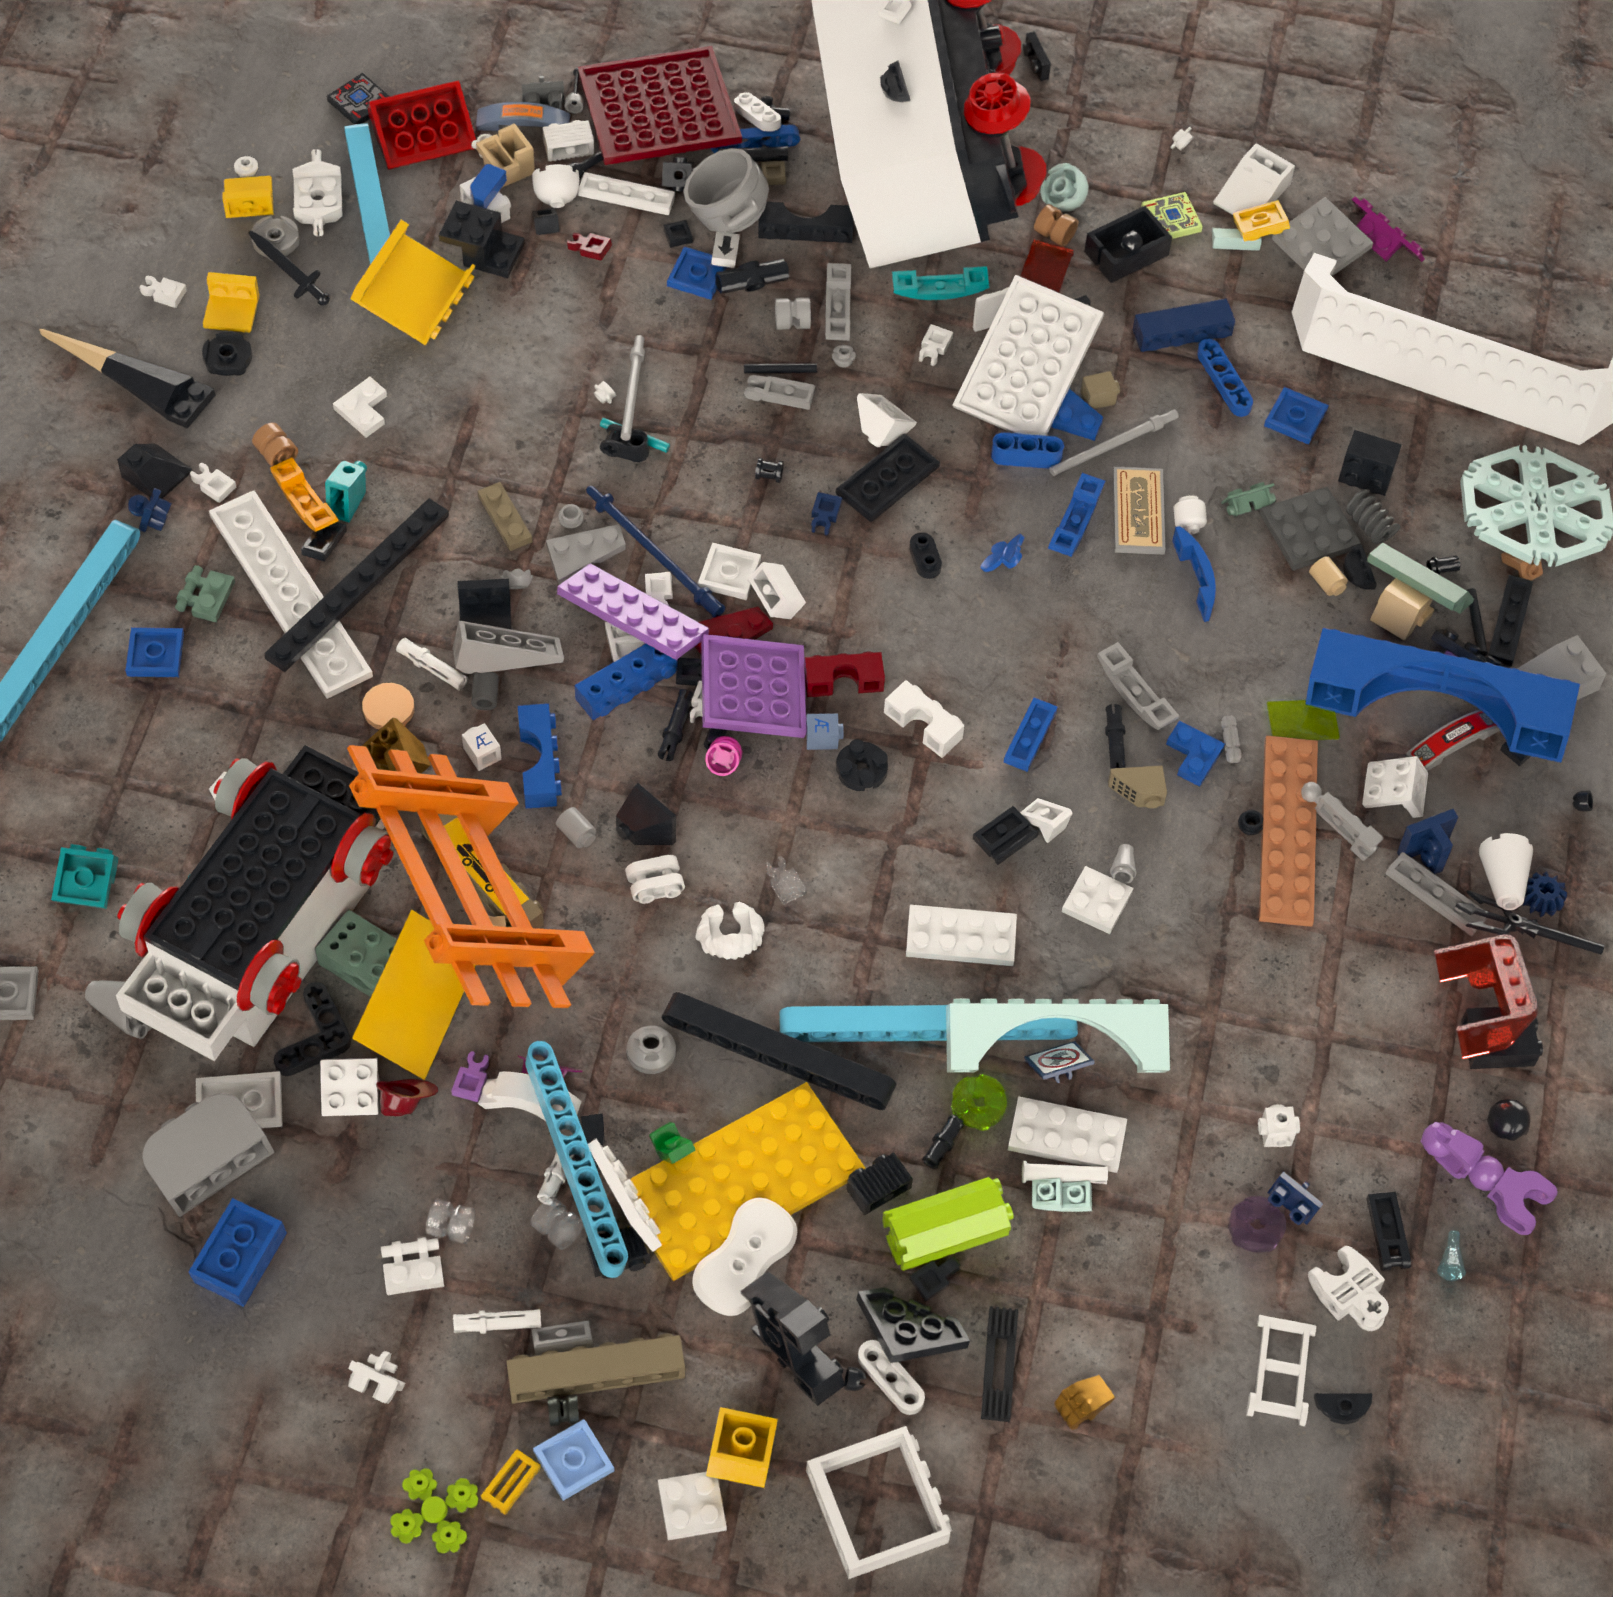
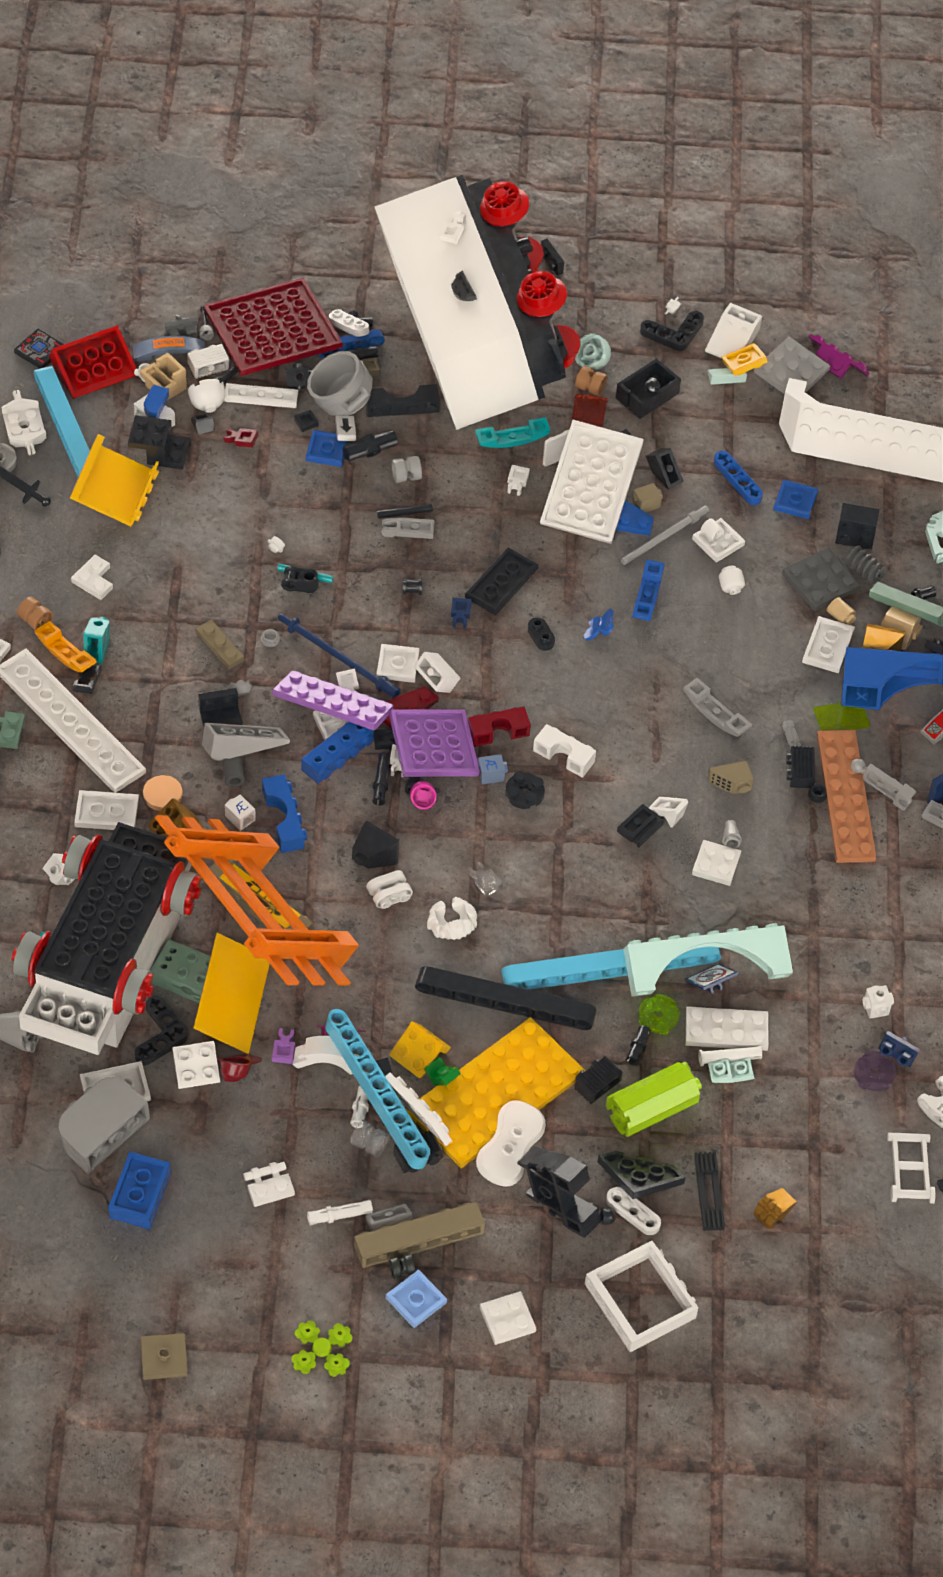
camera: 10 degrees left, 5 degrees down
(221, 1490) = (164, 1356): none -> dark tan plate
(310, 721) = (105, 809): none -> white plate
(356, 585) = (120, 707): black plate -> none
(386, 1385) = (269, 1266): white hips -> none
(423, 658) = (181, 754): white pin -> none
(460, 1222) = (299, 1147): clear wheel -> none
(496, 1501) = (366, 1335): yellow tile -> none
(576, 828) = (323, 861): light grey brick -> none
(578, 550) = (280, 663): light grey wing -> none
(637, 357) = (295, 515): light grey bar -> none
(648, 1104) = (417, 1049): none -> yellow bracket
(651, 1060) = (405, 1015): light grey piece -> none
(742, 1447) = (537, 1271): yellow brick -> none
(838, 302) = (438, 456): light grey slope -> none
(843, 355) = (450, 496): light grey plate -> none
(882, 419) = (489, 539): white slope -> none
(932, 1279) = (650, 1140): black plate -> none
(961, 935) = (622, 900): white plate -> none
(1027, 450) = (602, 548): blue beam -> none
(1030, 734) = (644, 752): blue plate -> none
(1115, 732) = (706, 742): black pin -> none
(1130, 352) = (665, 467): none -> black slope
(1138, 510) = (693, 582): tile -> none
(1175, 214) = (679, 362): tile -> none
(1177, 179) = (674, 336): none -> black beam
(1182, 457) = (718, 539): none -> white plate
(1183, 325) = (702, 442): dark blue brick -> none
(1189, 549) = (736, 604): blue slope -> none
(1200, 749) = (770, 747): blue plate -> none
(1235, 783) = (801, 767): none -> black brick
(1258, 495) = (766, 566): sand green hinge -> none
(1302, 618) = (828, 644): none -> white plate
(1358, 569) = (862, 604): black plate -> none
(1375, 622) = (883, 638): none -> slope
(1396, 783) = (917, 752): white bracket -> none

